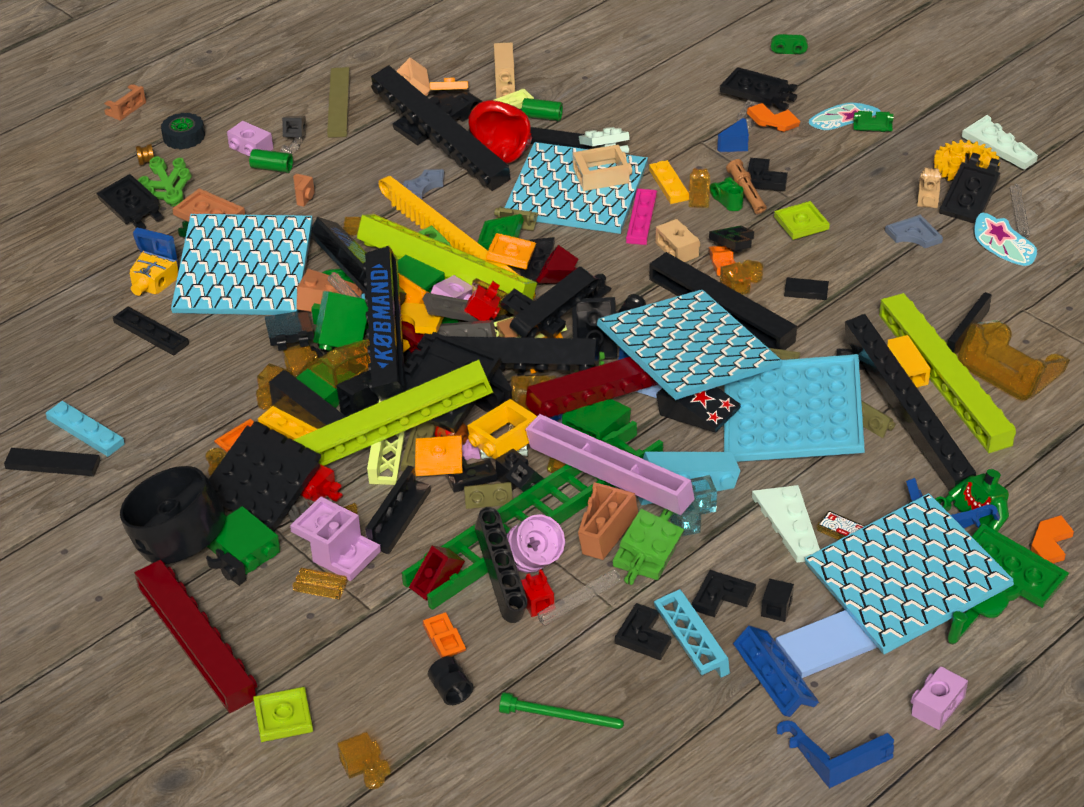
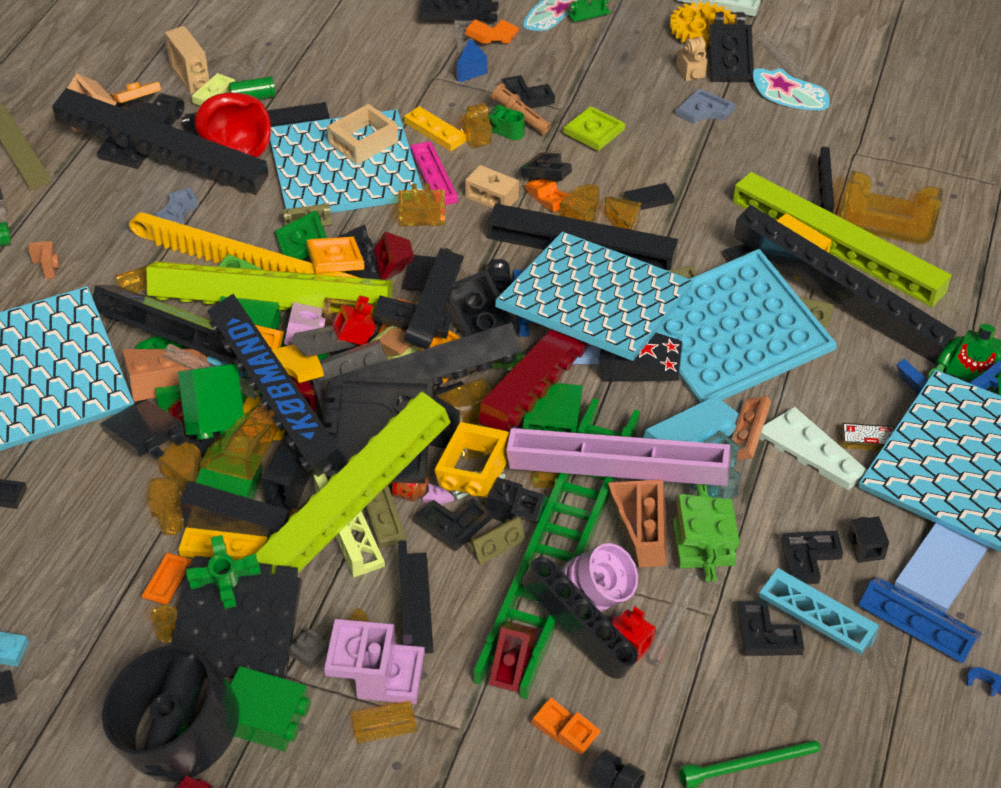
camera: 30 degrees left, 5 degrees up
(230, 566) = (269, 746): black plate -> none
(264, 436) = (221, 560): none -> green pin
(322, 485) = (311, 601): red brick -> none
(438, 455) = (418, 515): light orange plate -> none
(607, 137) = (346, 101): light aqua plate -> none
(609, 238) = (421, 207): none -> clear yellow brick
(746, 486) = (750, 425): none -> nougat tile
(772, 294) = (622, 212): none -> clear yellow slope

